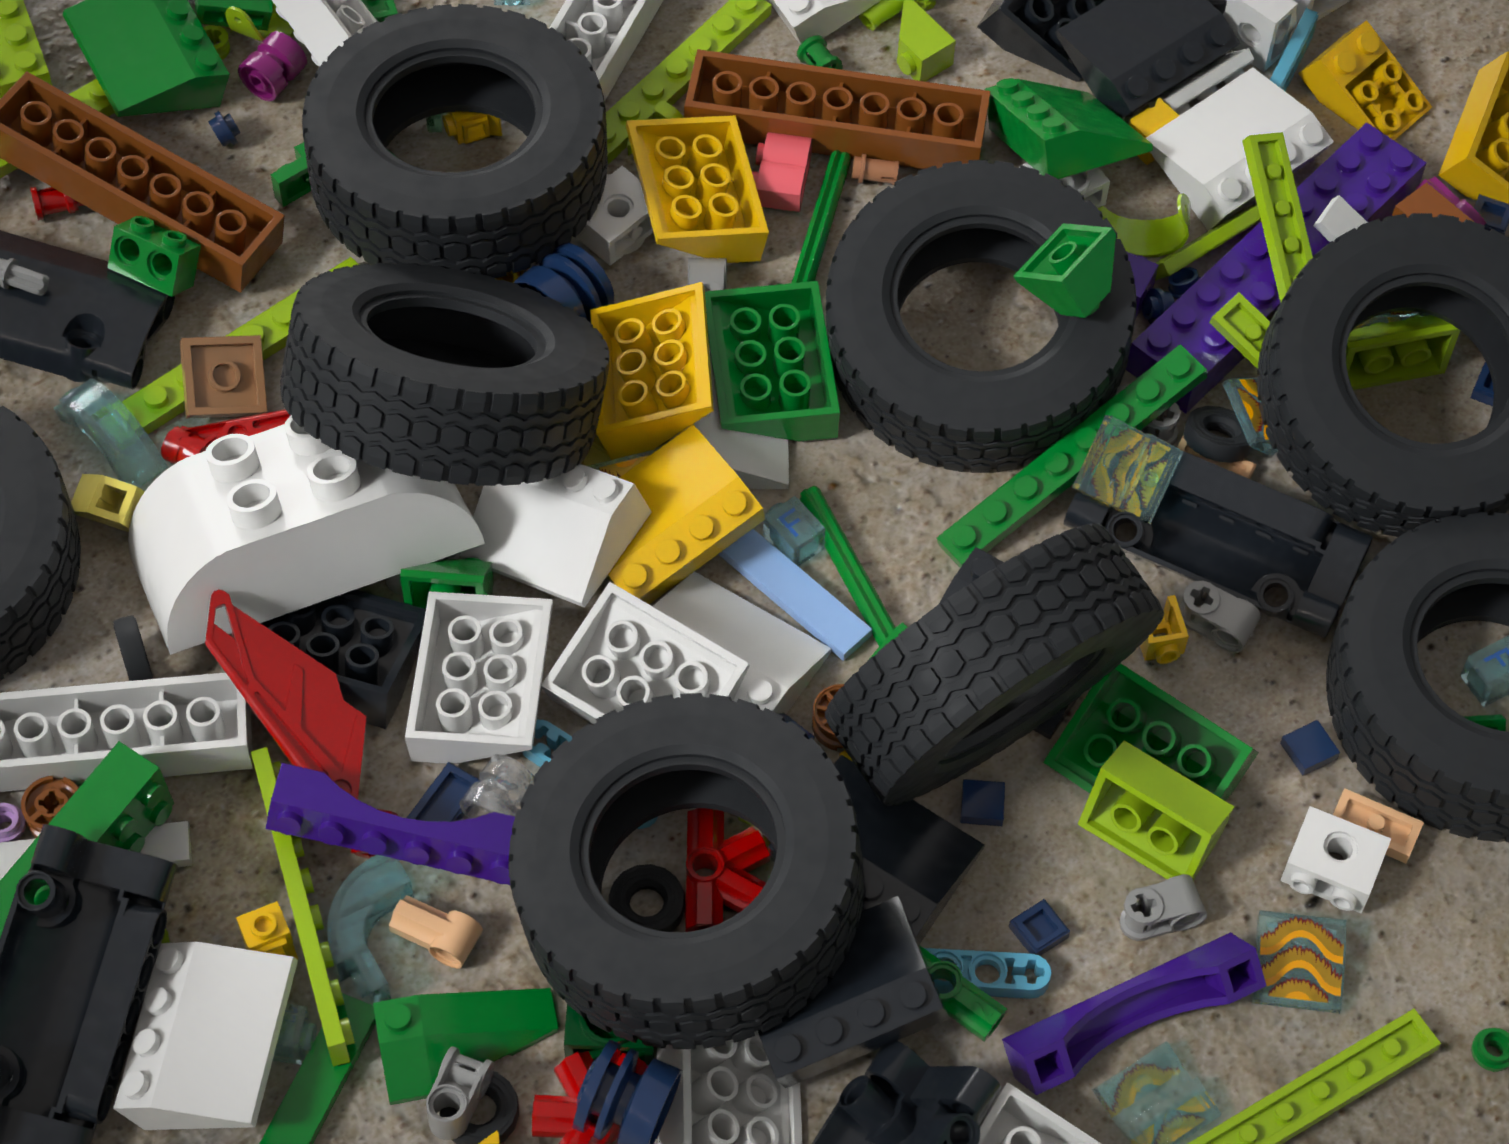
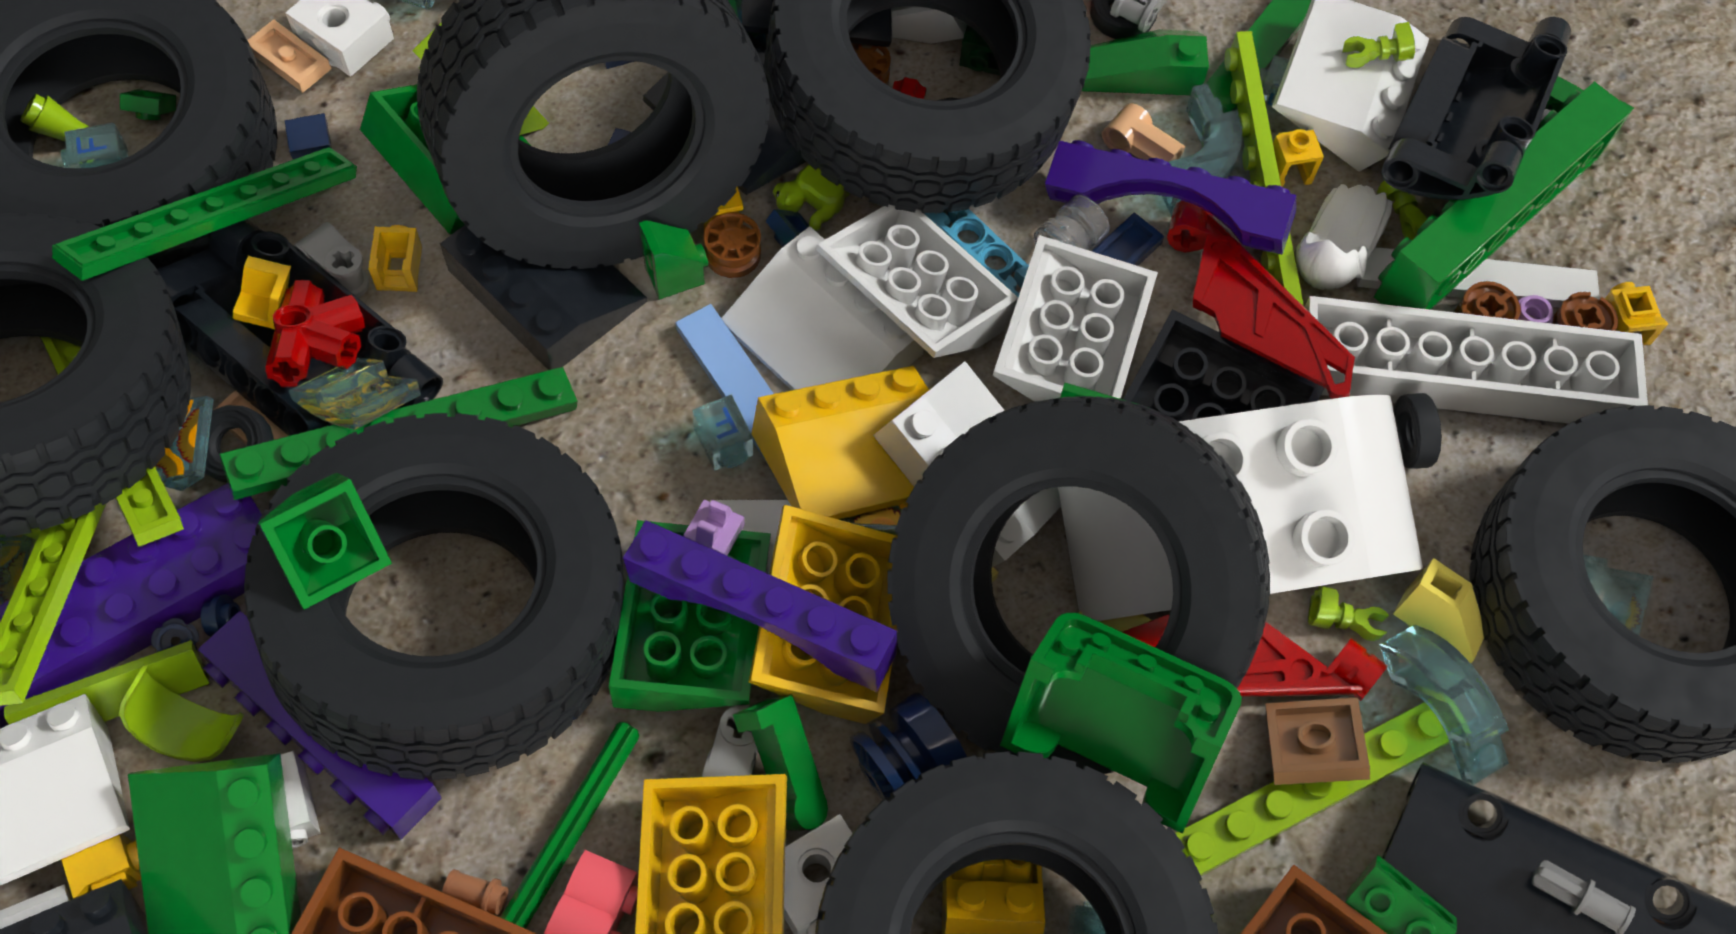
camera: 170 degrees left, 5 degrees up
(155, 1041) = (1400, 46): none -> lime piece
(213, 850) = (1342, 236): none -> white hair
(341, 253) = (1125, 711): none -> green windscreen
(655, 272) = (786, 751): none -> green leg
(770, 408) = (715, 526): none -> lavender tile
(782, 351) = (826, 631): none -> dark purple arch
(849, 566) = (676, 395): green axle -> none
(1188, 527) = (312, 329): none -> red piece
(1259, 551) = (261, 291): none -> yellow panel
(1330, 577) = (201, 213): none -> green tile

